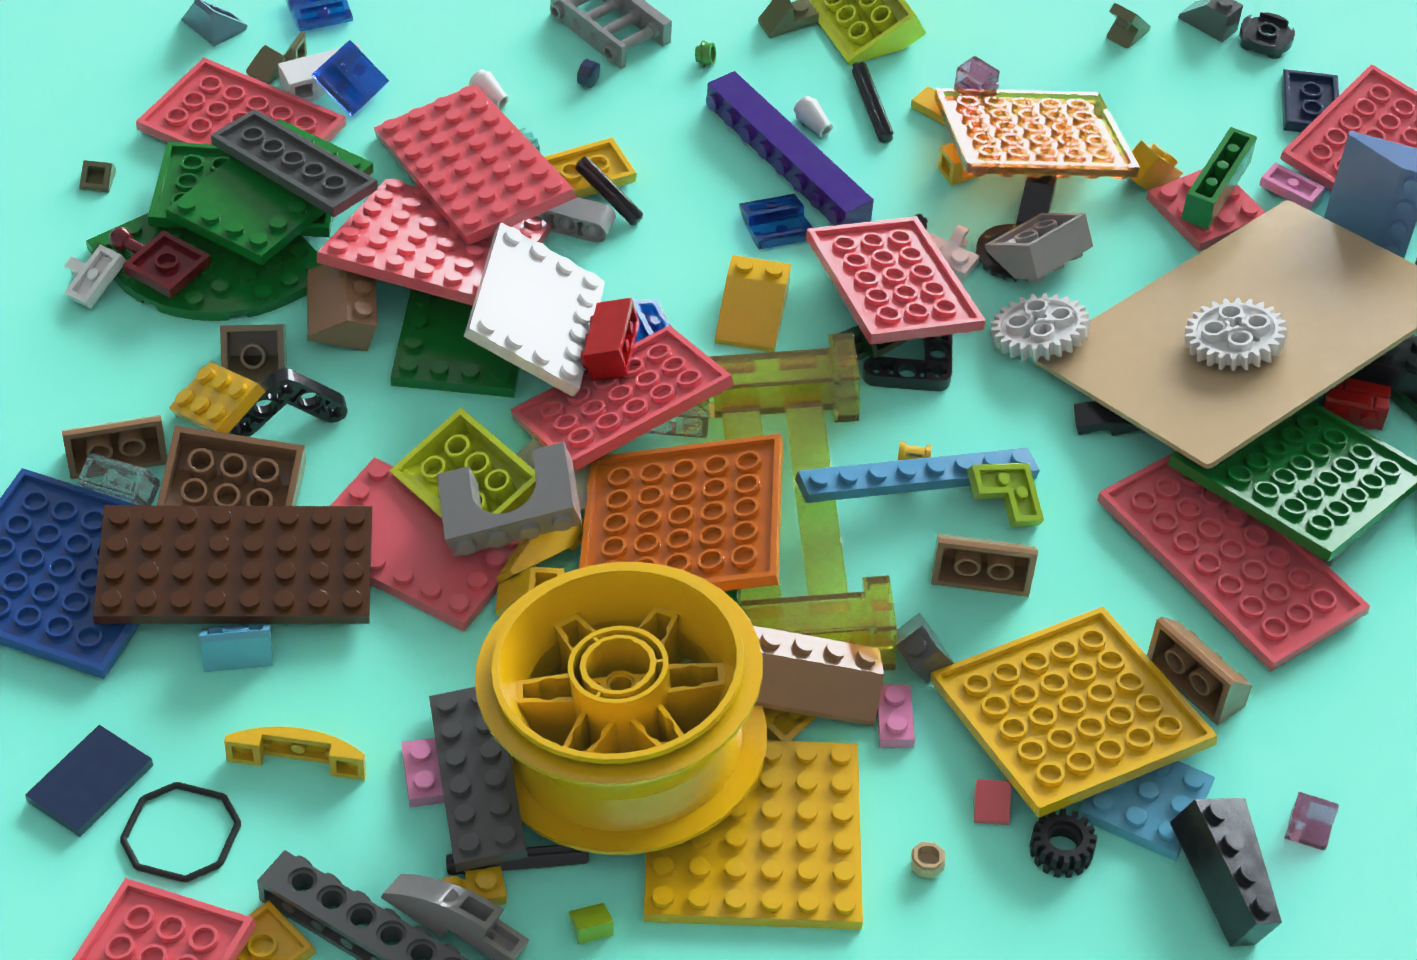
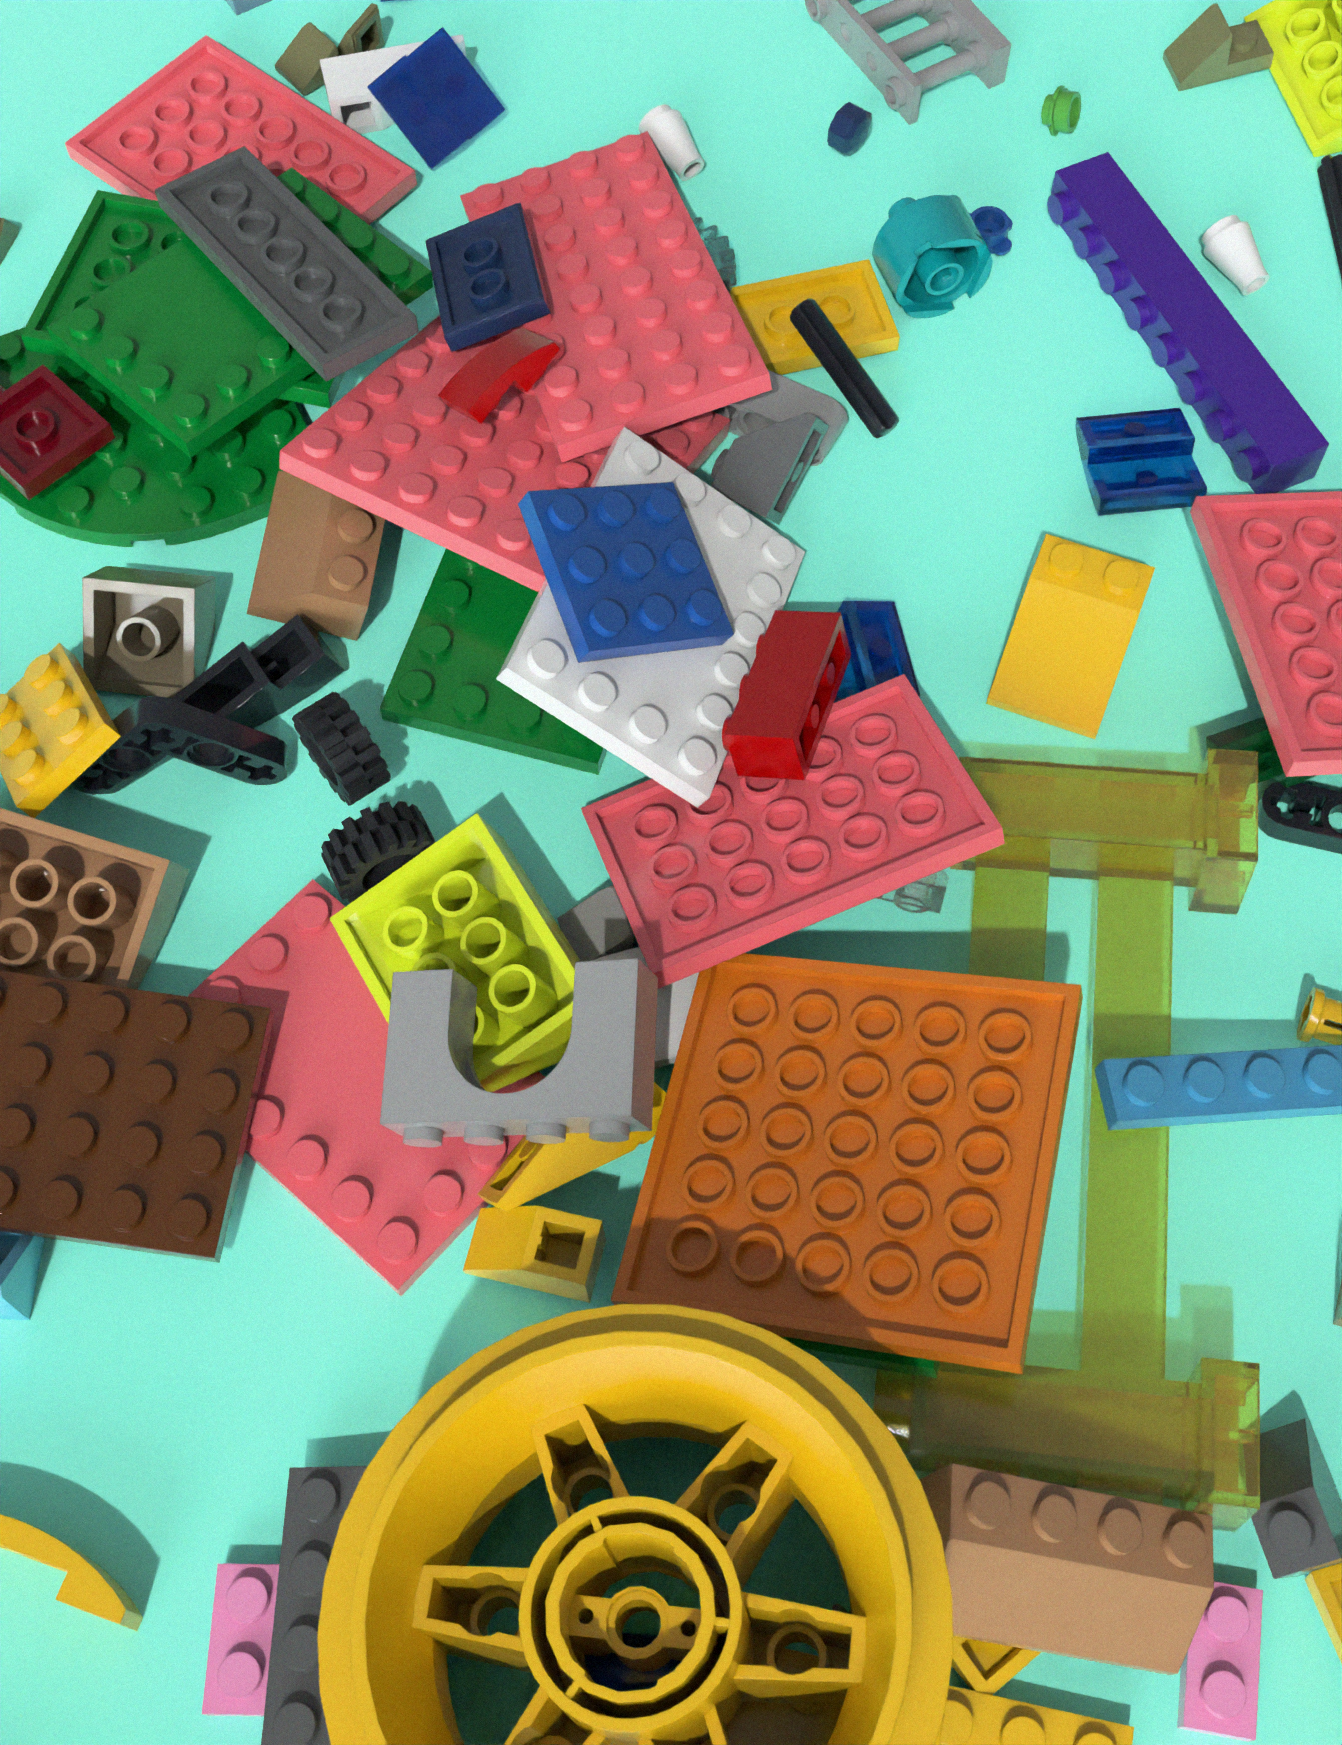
camera: 15 degrees right, 15 degrees up
(330, 366) = (266, 680): none -> black slope
(377, 393) = (341, 748): none -> black tyre
(404, 162) = (486, 277): none -> dark blue tile
(406, 432) = (374, 847): none -> black tyre
(422, 205) = (512, 360): none -> red slope
(517, 285) = (625, 570): none -> blue plate
(579, 237) = (768, 465): none -> dark grey slope
(646, 130) = (931, 254): none -> teal brick
(675, 118) = (994, 228): none -> blue plate

